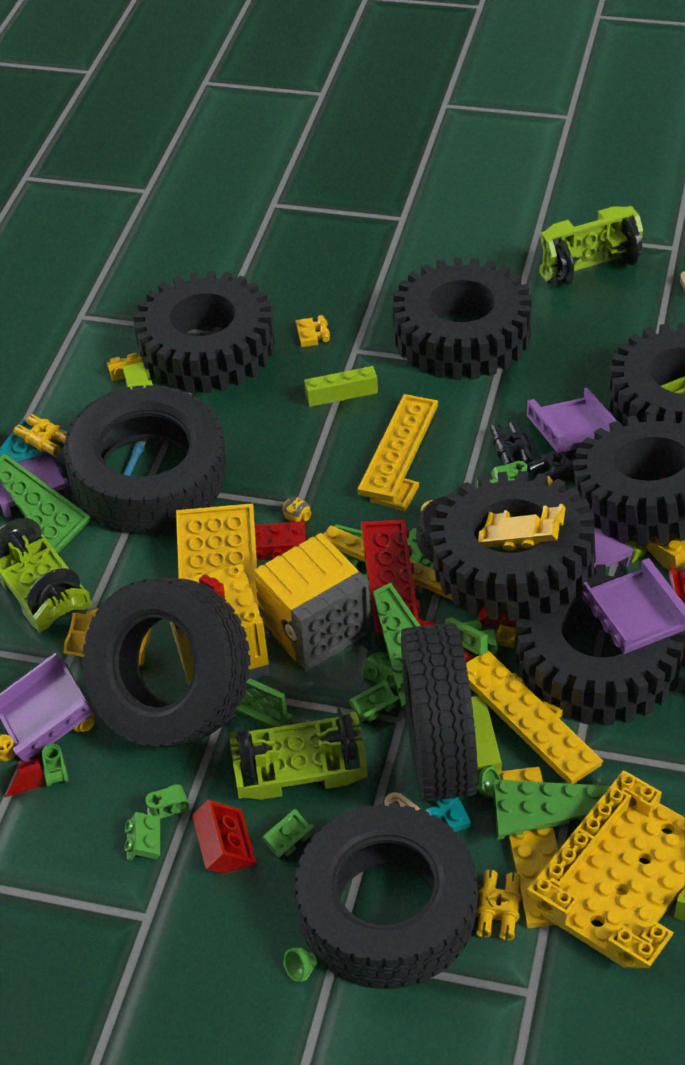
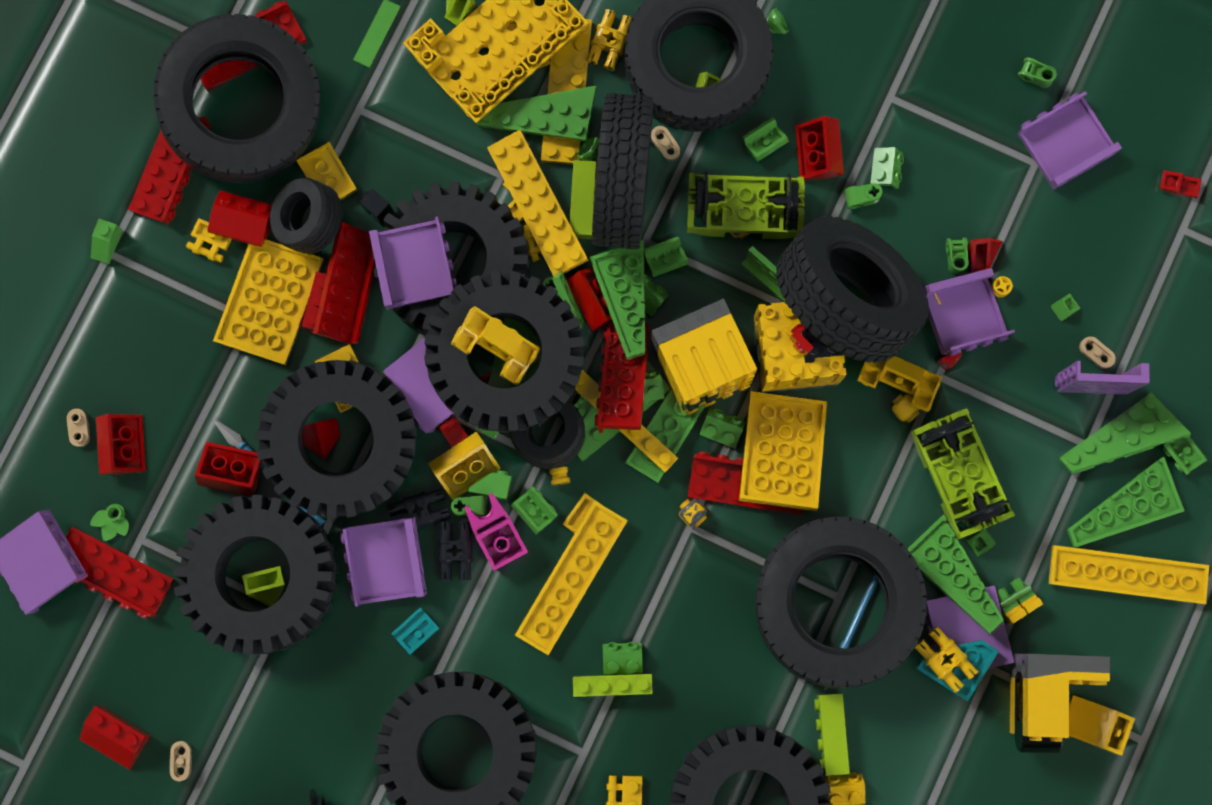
camera: 170 degrees left, 35 degrees up
(337, 408) = (622, 658): none -> bright green bracket
(369, 885) = (706, 79): none -> lime slope
(445, 481) = (534, 510): none -> bright green bracket
(476, 453) = (493, 527): none -> dark pink brick
(526, 389) = (415, 631): none -> teal plate

